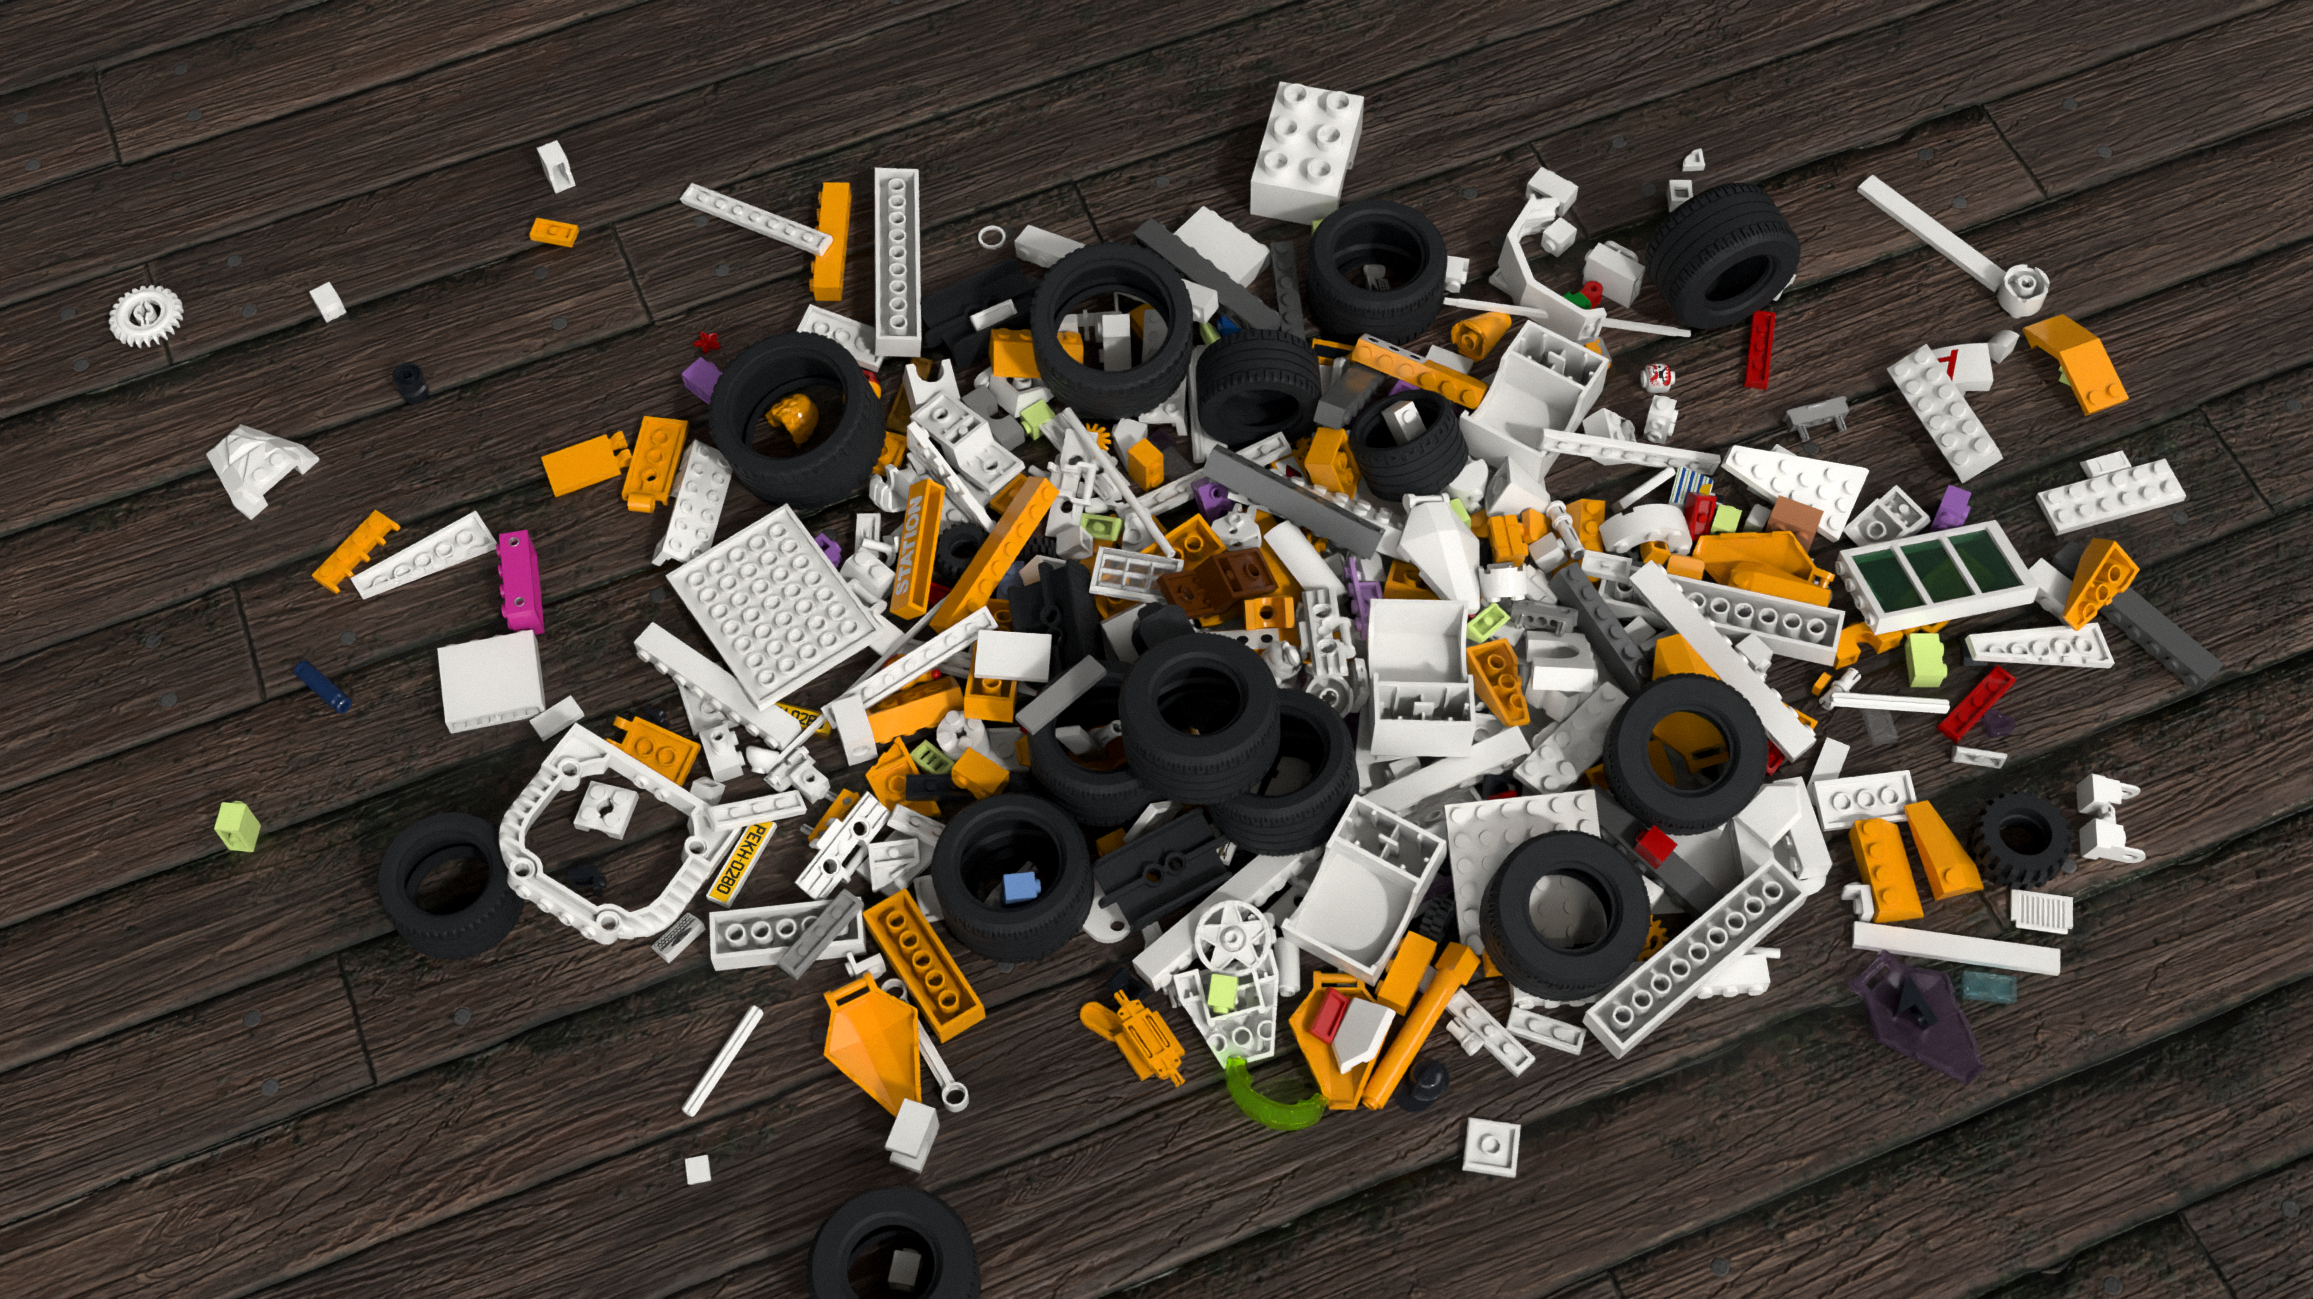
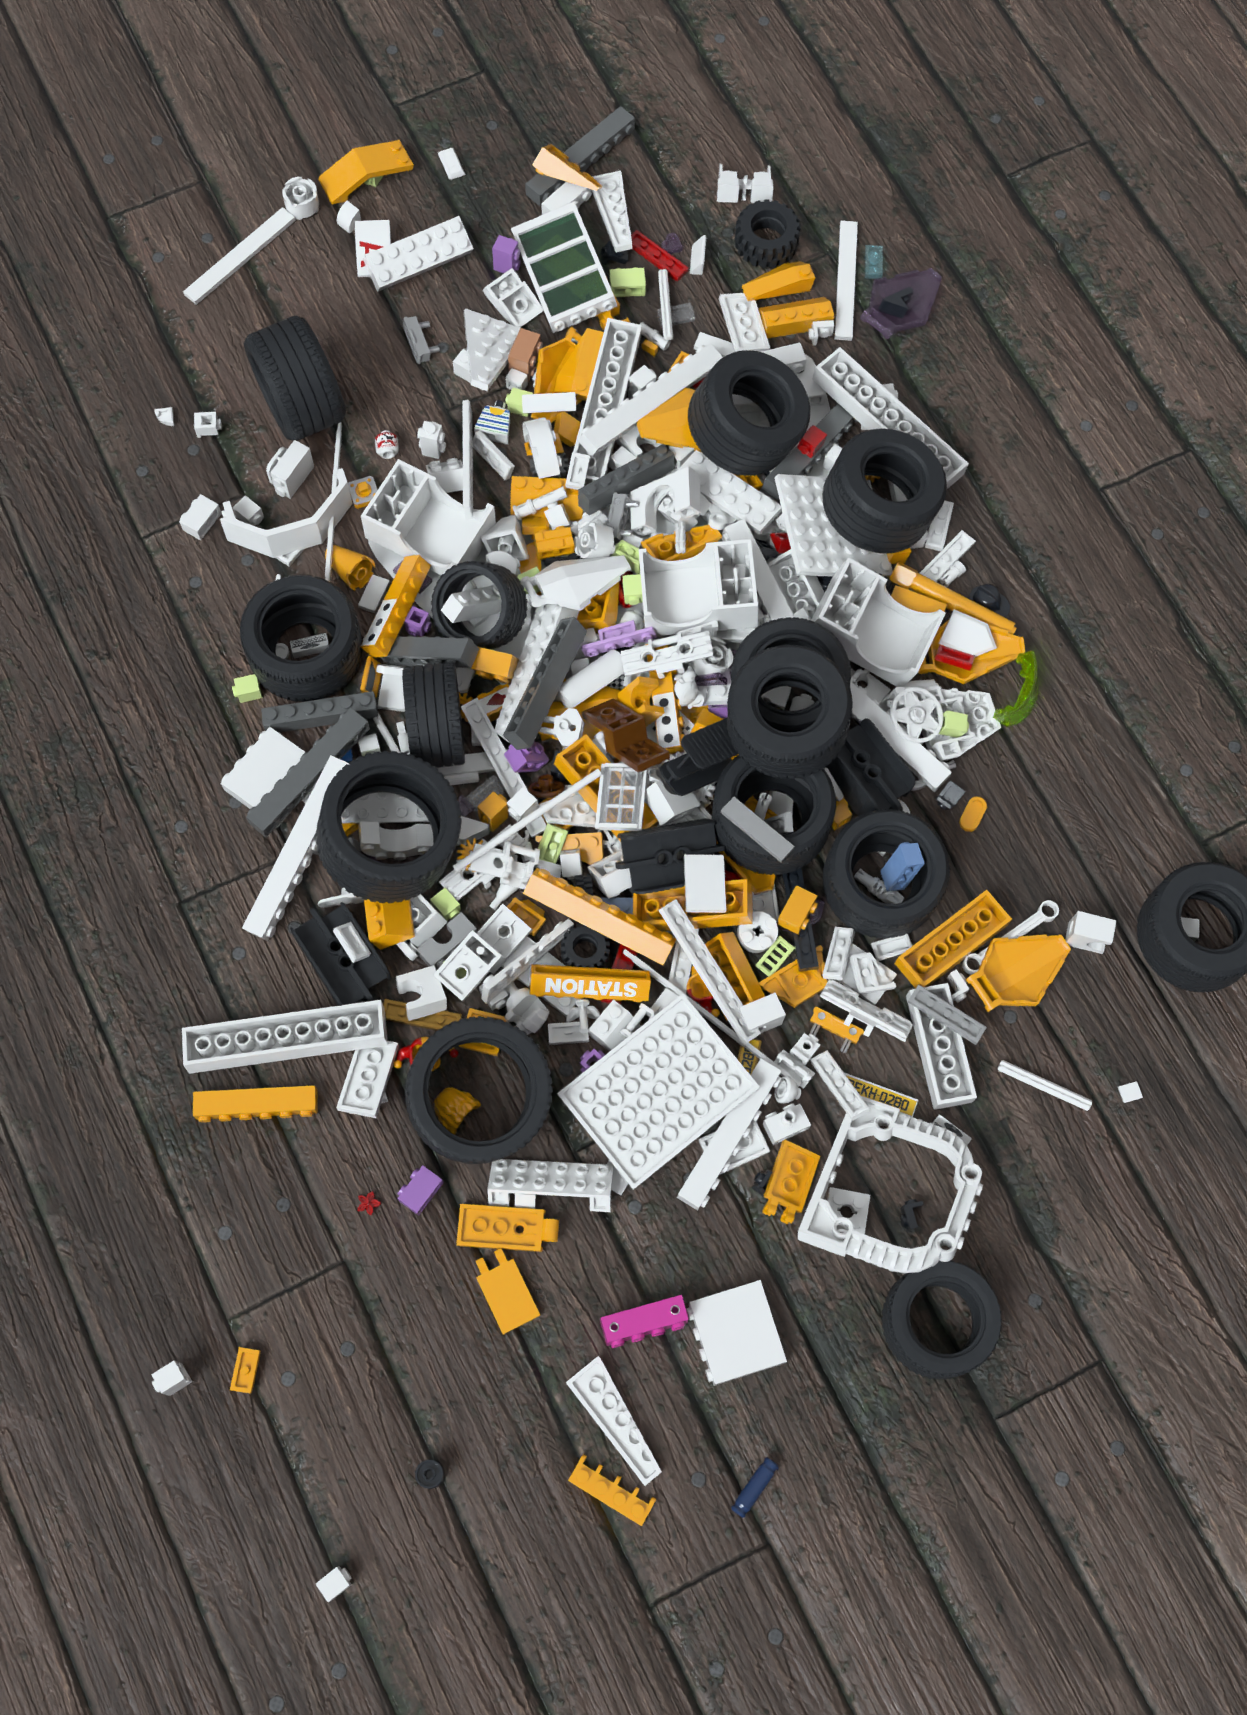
camera: 100 degrees left, 10 degrees up
(237, 826) = (904, 1526): yellowish green brick -> none
(253, 462) = (523, 1613): white wedge -> none
(556, 718) = (764, 1270): white tile -> none
(708, 790) = (823, 1131): white brick -> none
(756, 219) = (232, 1175): white tile -> none
(991, 246) = (243, 955): white piece -> none
(1145, 485) = (522, 804): none -> white brick
(1147, 1041) = (992, 776): light orange piece -> none
(1173, 521) = (546, 784): none -> reddish brown piece
(1305, 153) = (166, 696): white piece -> none
(1491, 1147) = (1028, 557): white tile -> none
(1506, 676) = (680, 537): none -> white axle
(1532, 725) = (717, 521): none -> white tile
(1588, 297) = (311, 493): leg -> none
(1699, 513) = (514, 416): red slope -> none
(1716, 546) = (549, 402): none -> white tile
(1759, 350) = (361, 376): red tile -> none
(2041, 911) = (812, 230): white window -> none
(2110, 497) = (479, 163): white plate -> none

